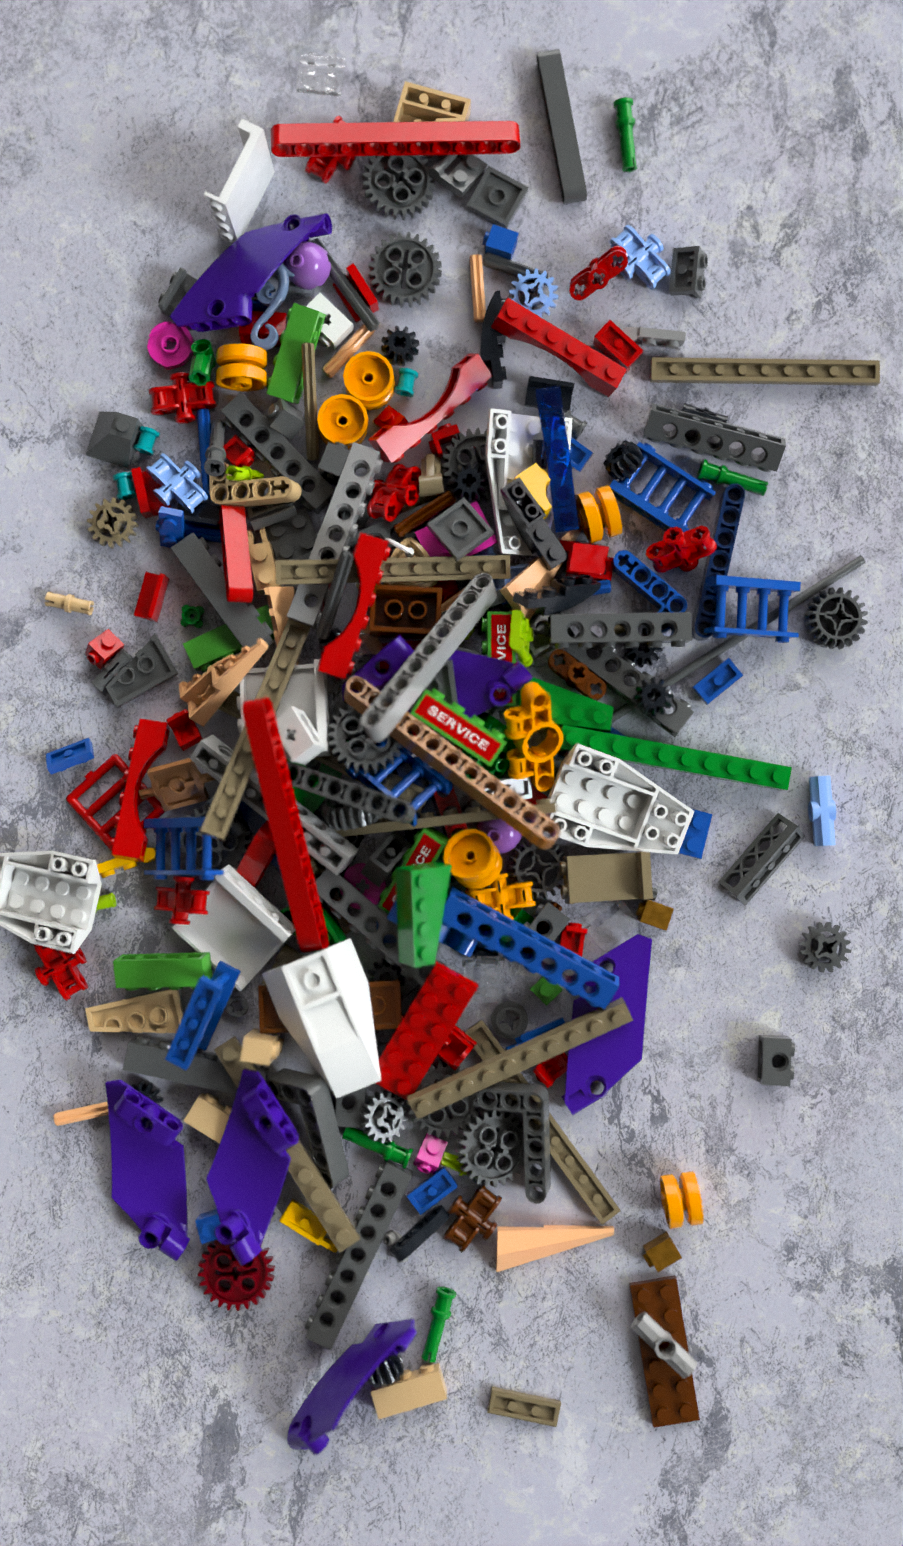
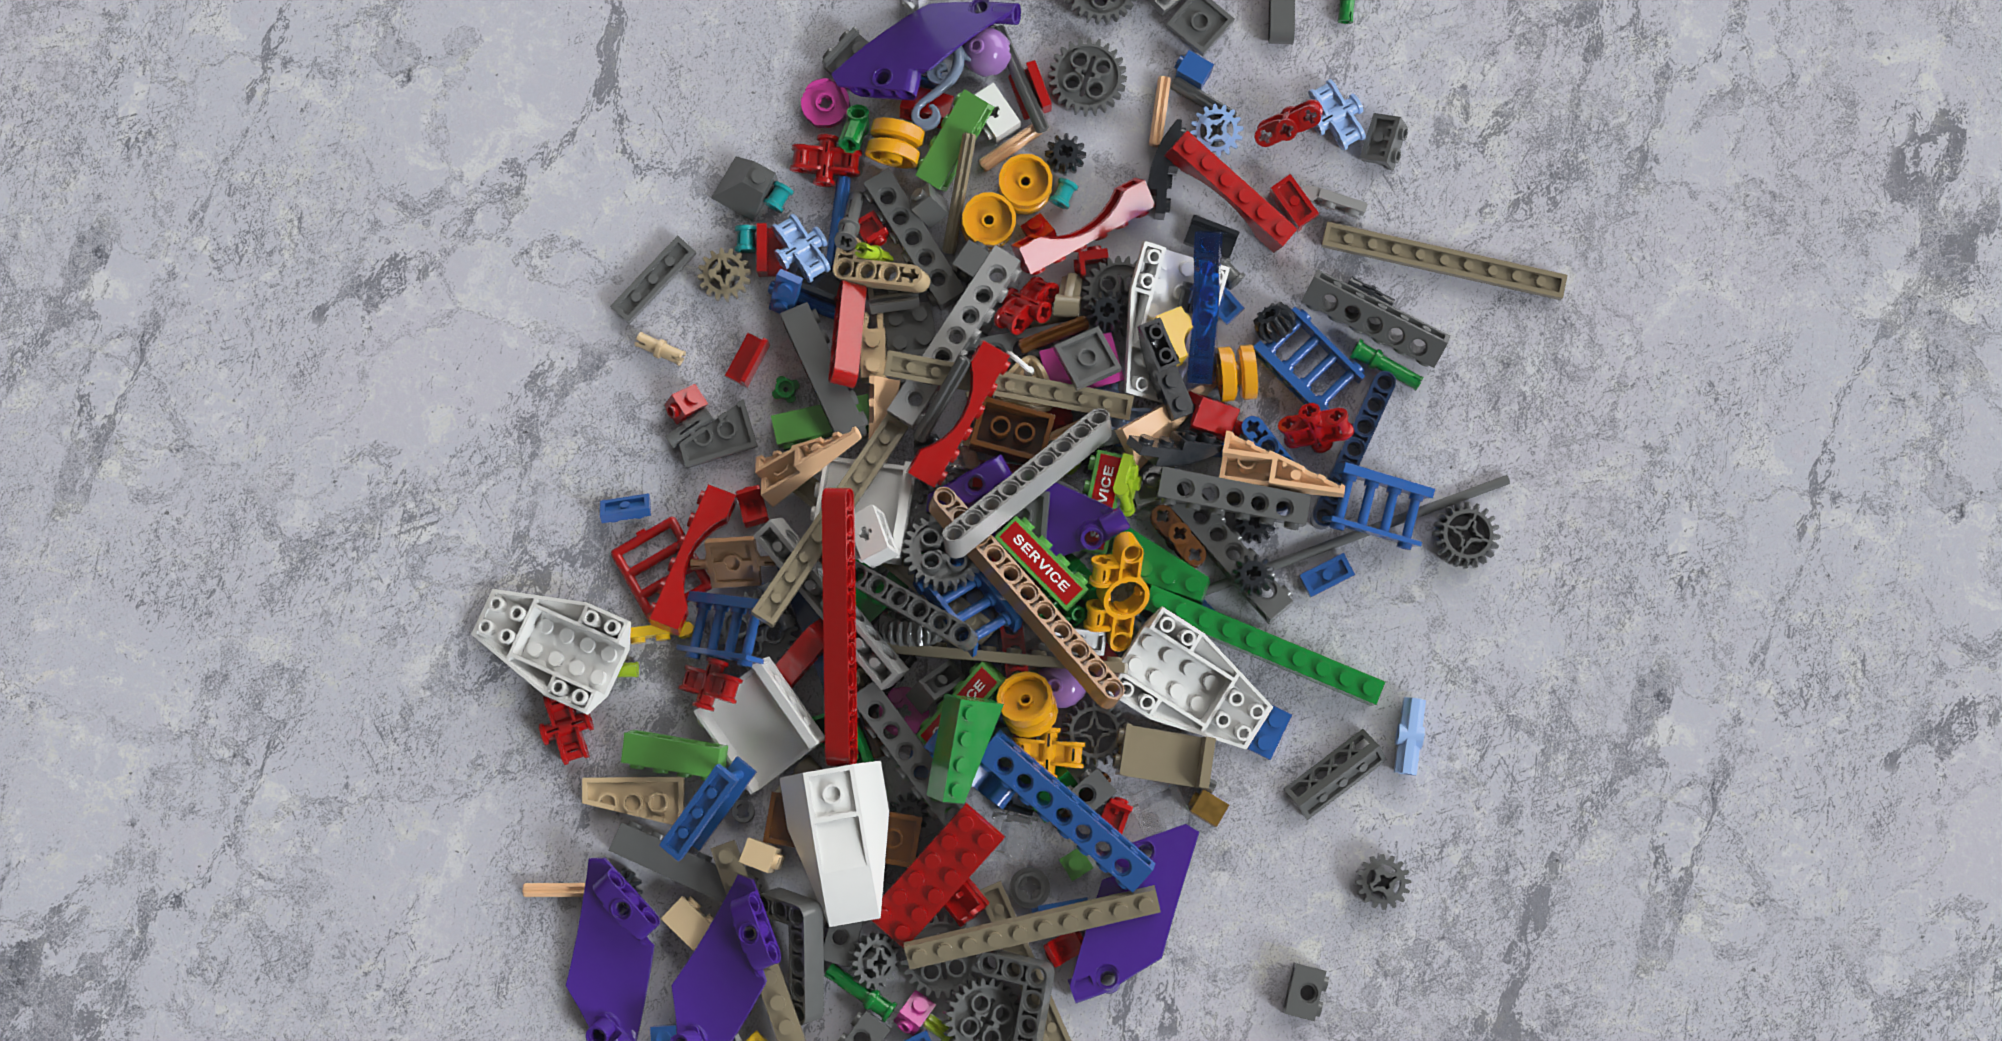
camera: 10 degrees right, 5 degrees down
(49, 541) = (653, 279): none -> dark grey plate
(635, 595) = (1254, 465): none -> light nougat wedge

